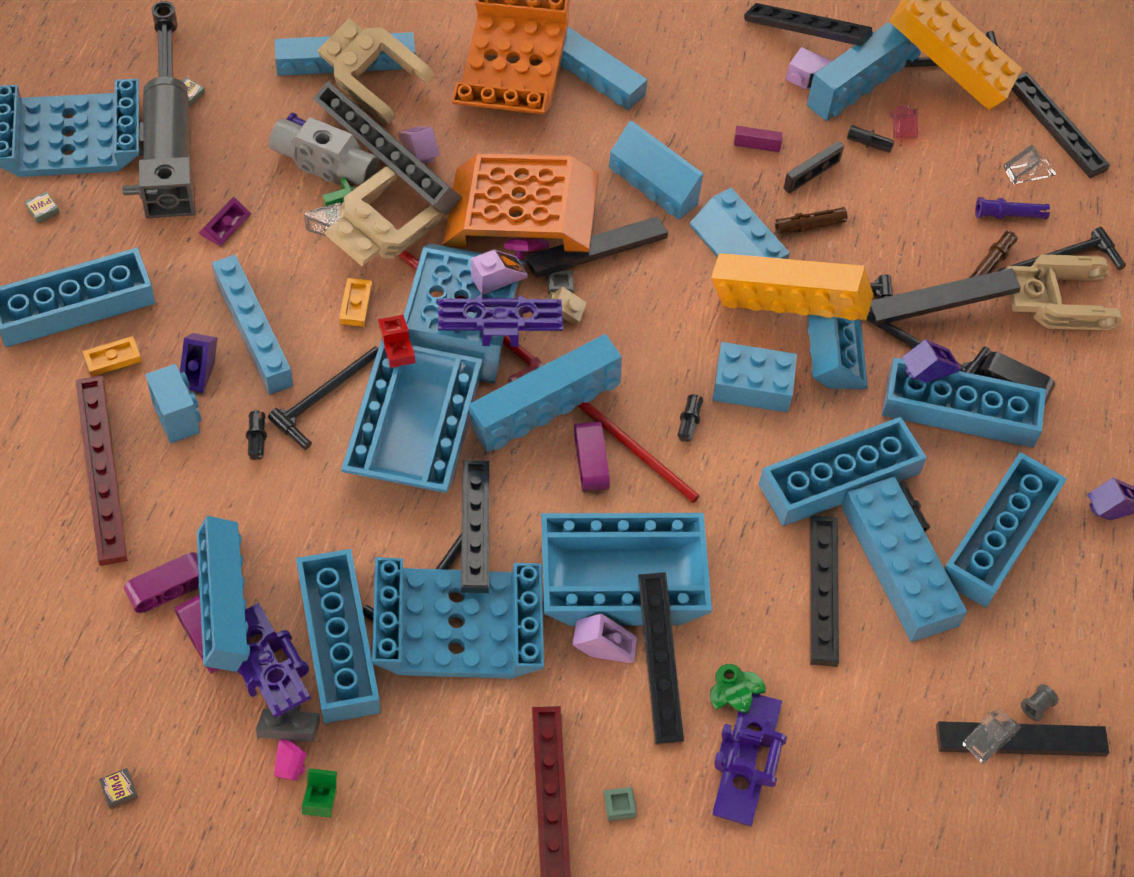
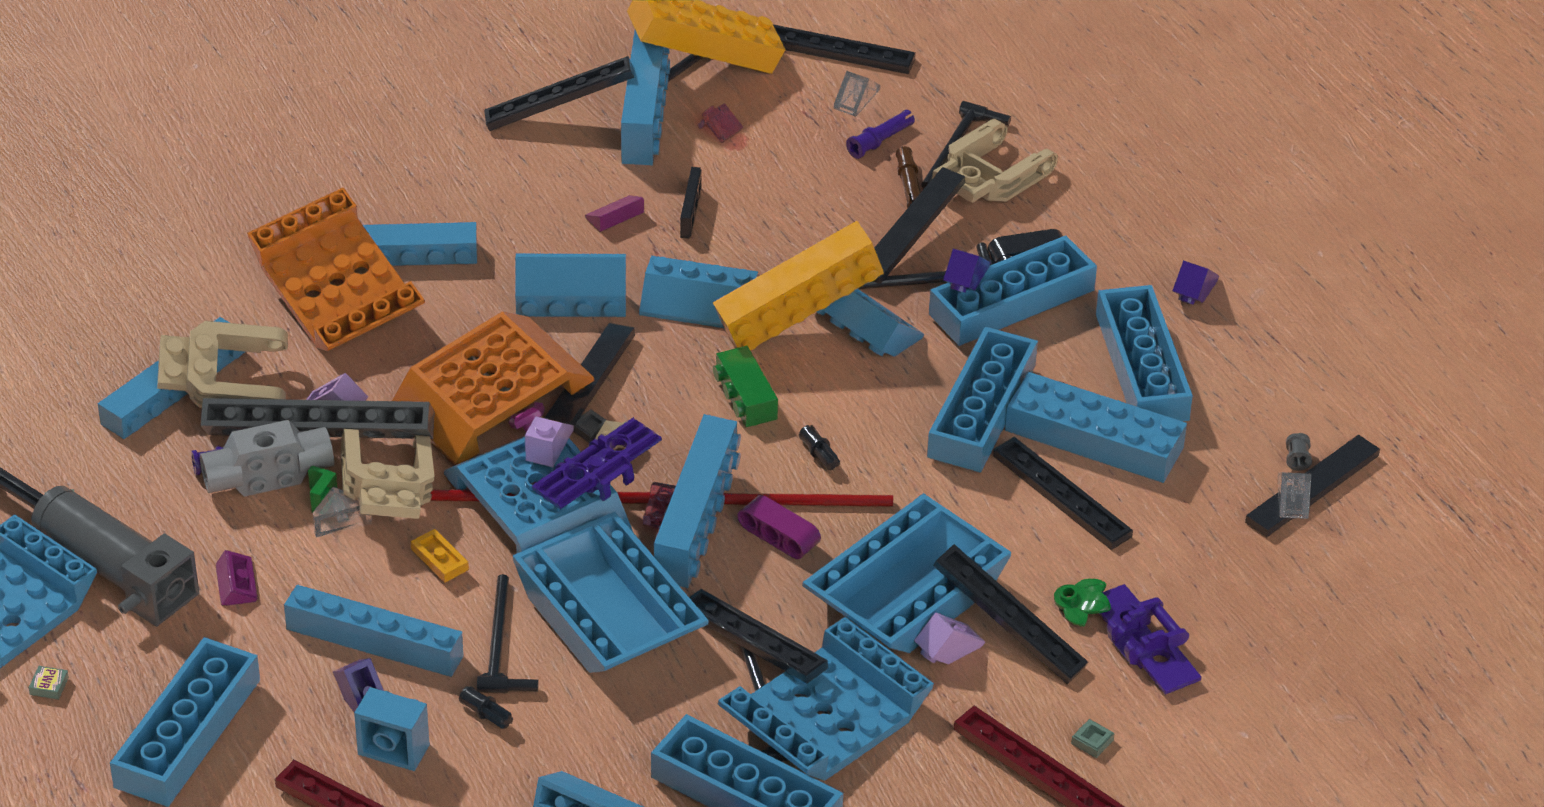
camera: 40 degrees left, 15 degrees down
(112, 356) = (279, 742): light orange plate -> none
(396, 341) = (528, 545): red slope -> none
(691, 332) = (746, 386): none -> green brick
(754, 377) = (835, 382): dark azure brick -> none
(801, 222) = (731, 249): reddish brown pin -> none
(804, 66) = (597, 131): lavender slope -> none
(869, 138) = (708, 153): black axle -> none

